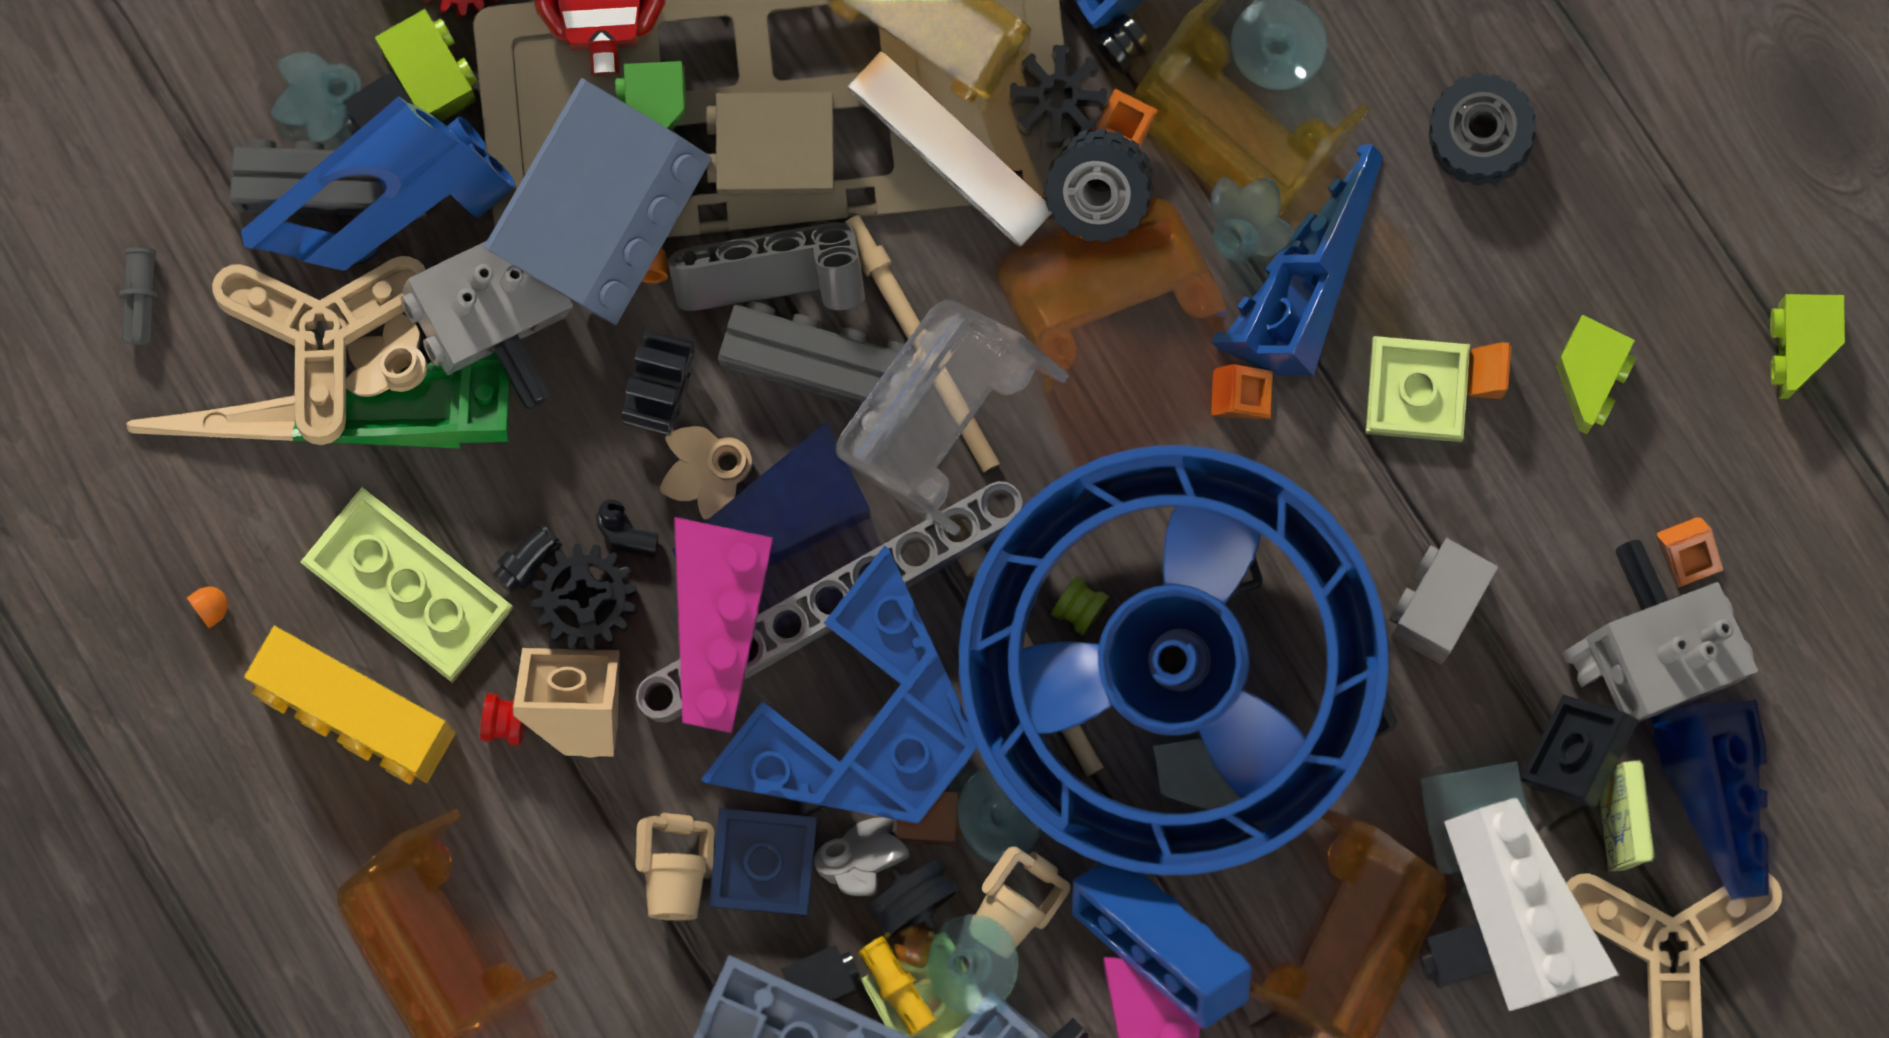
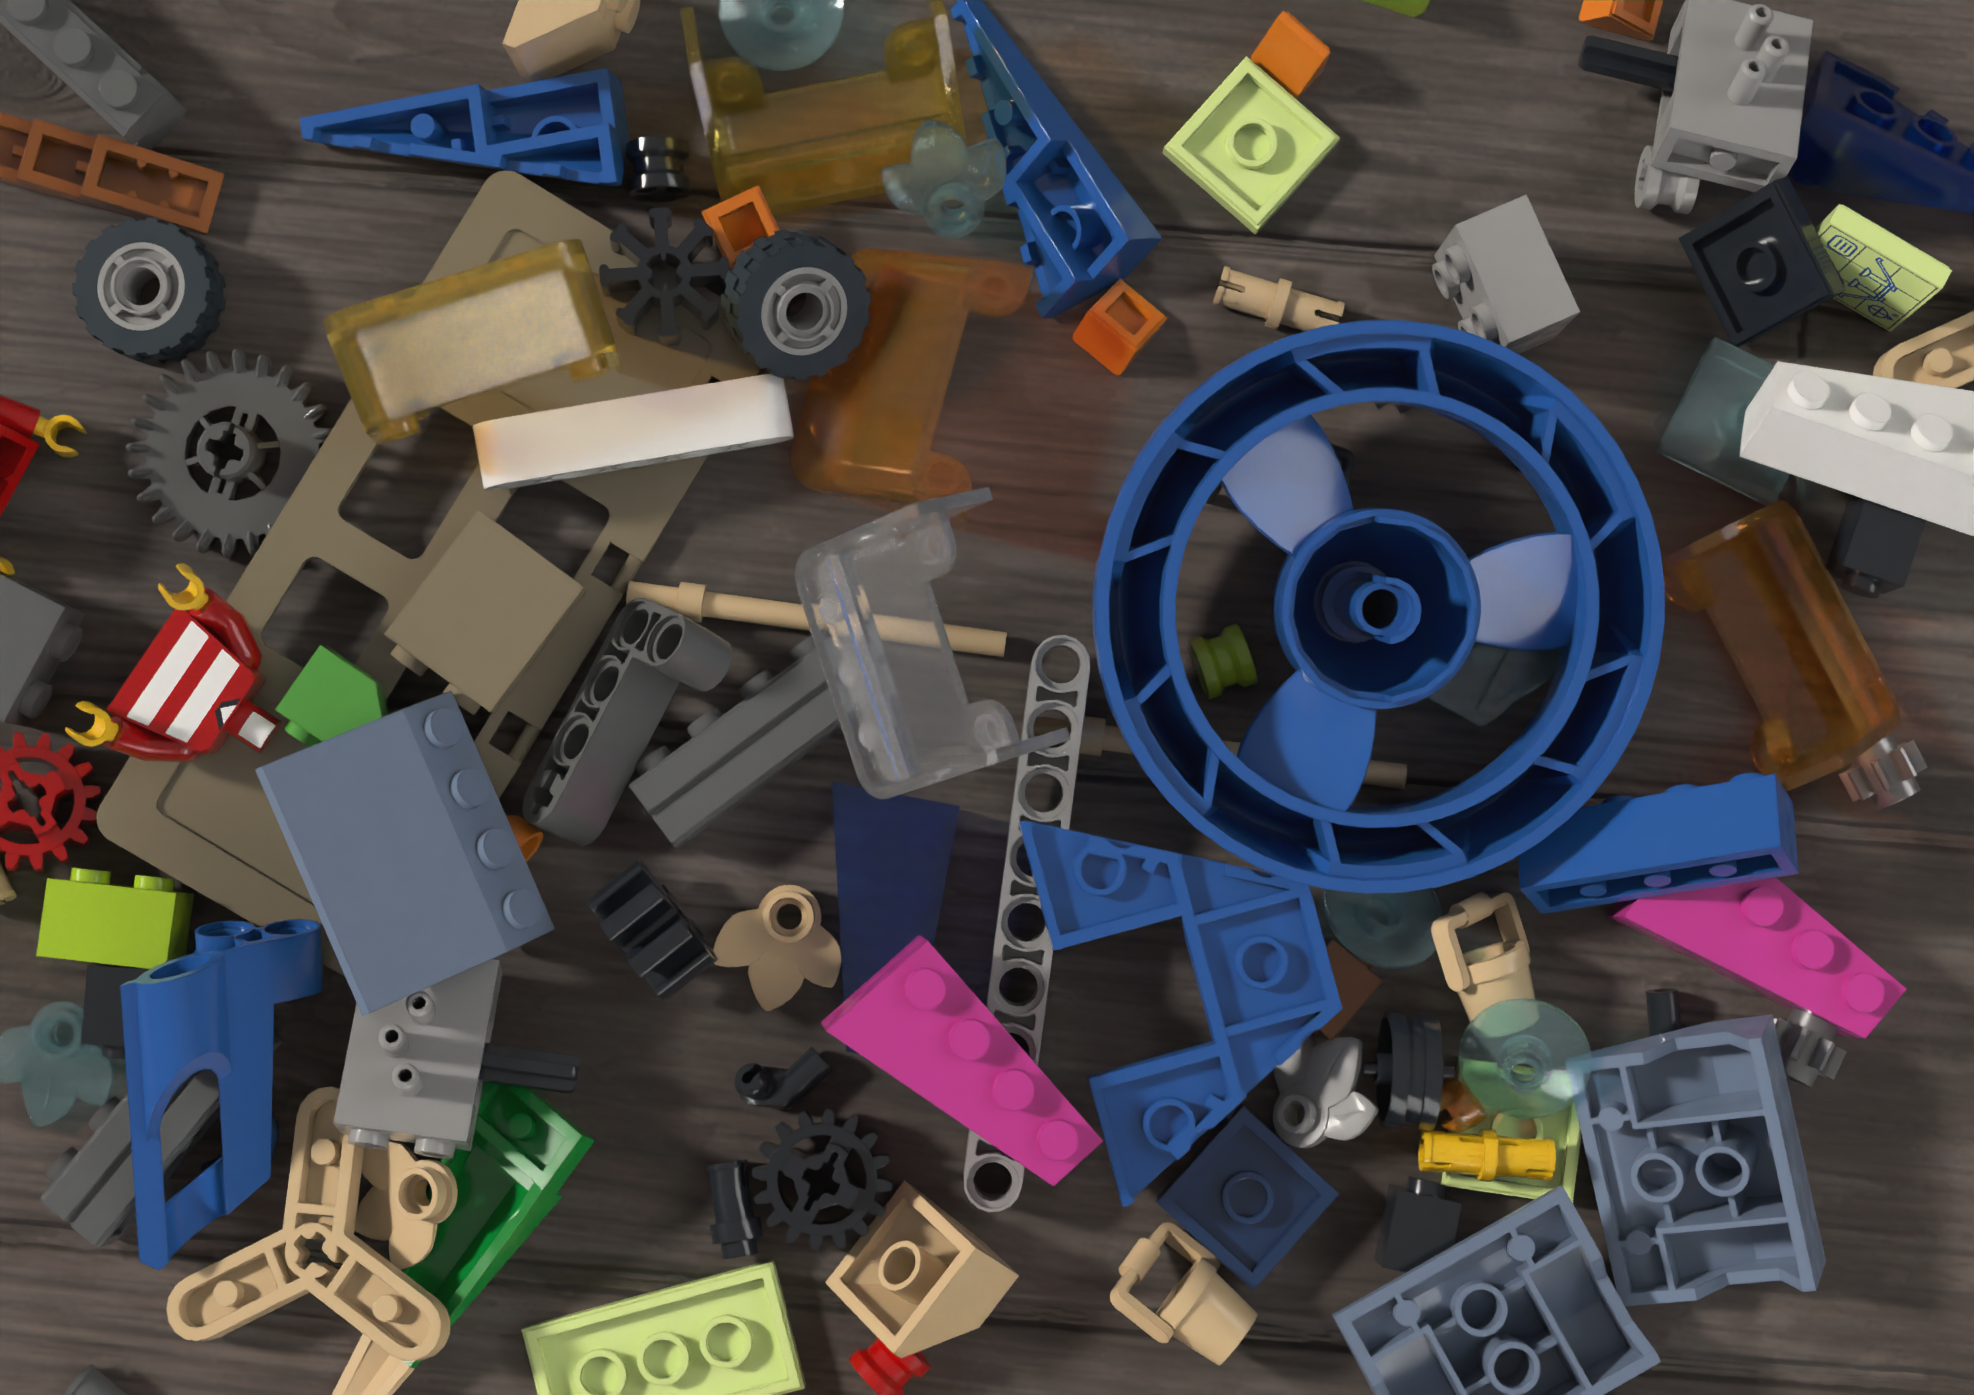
camera: 60 degrees left, 5 degrees up
(1330, 476) = (1275, 301): none -> tan pin

